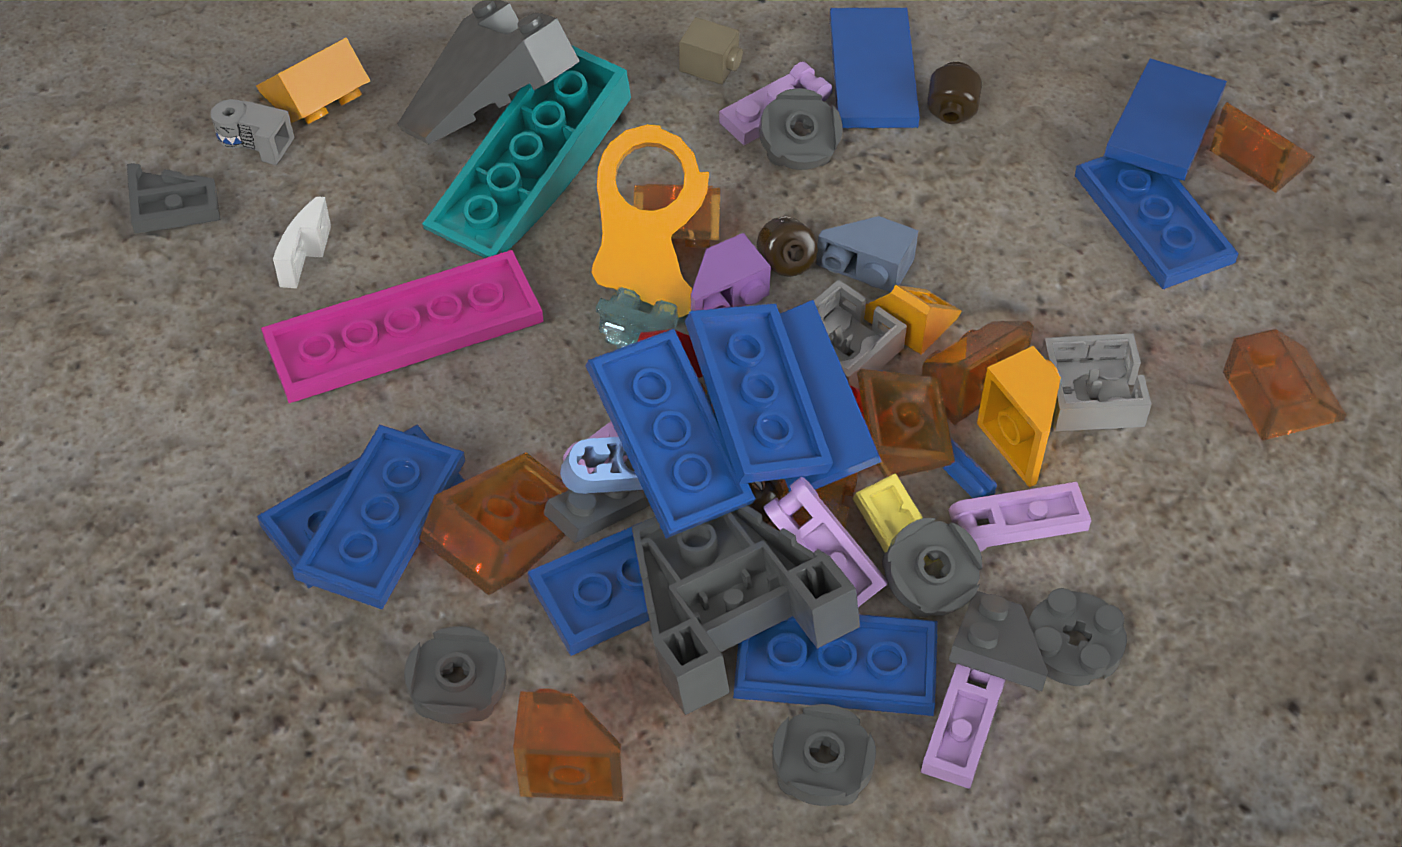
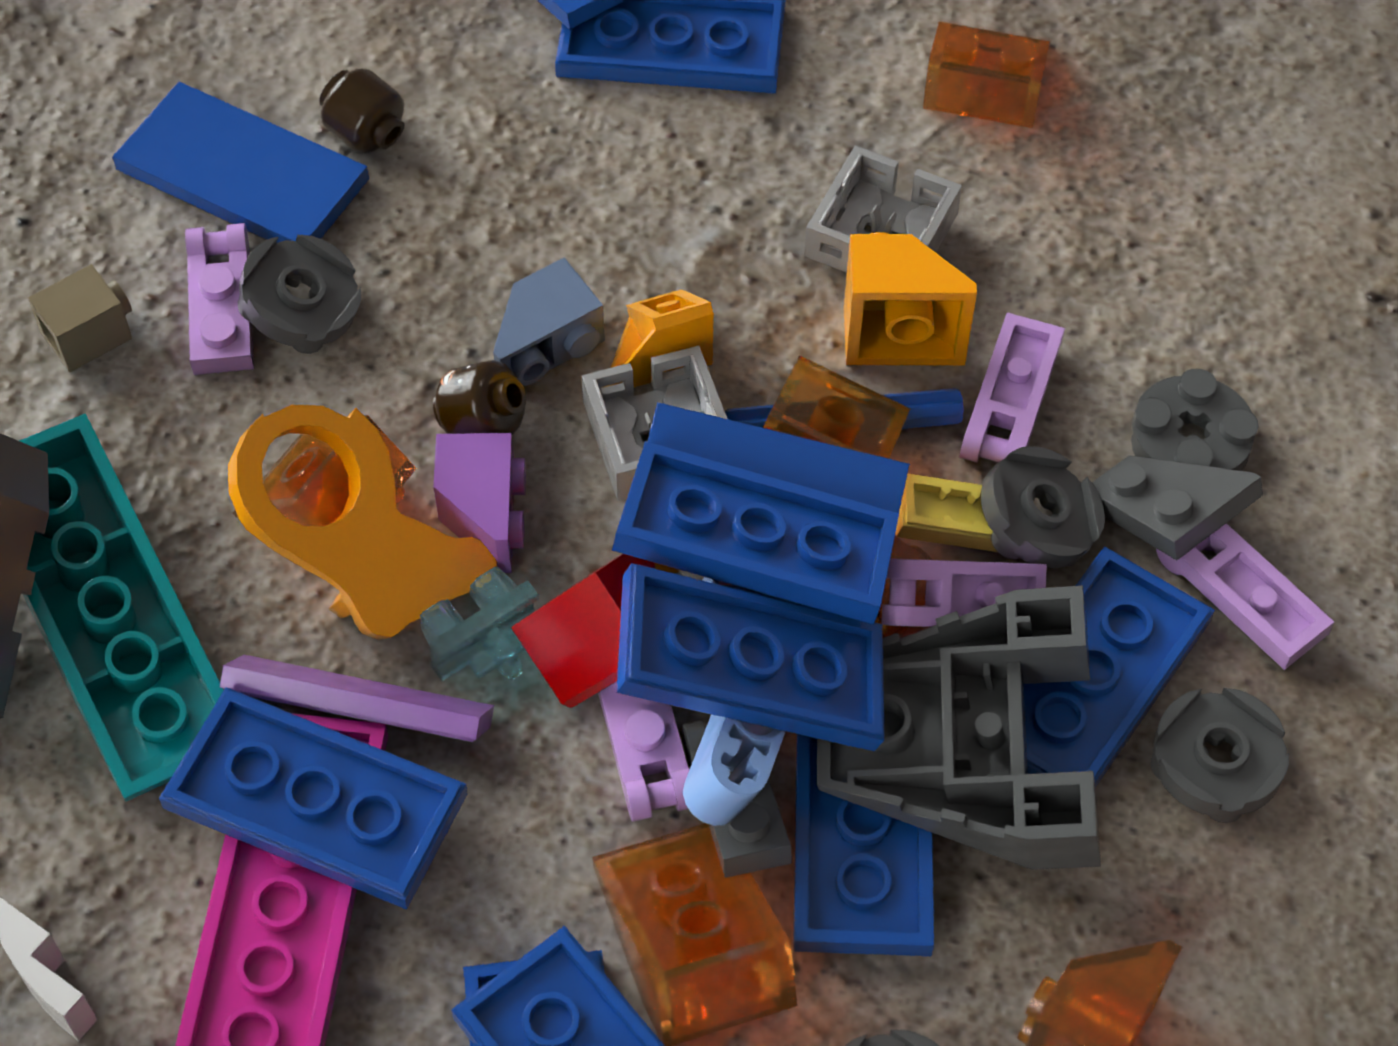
camera: 60 degrees left, 5 degrees up
(471, 301) = (315, 797): none -> blue tile
(552, 293) = (357, 697): none -> medium lavender tile
(965, 363) = (791, 306): clear orange slope -> none

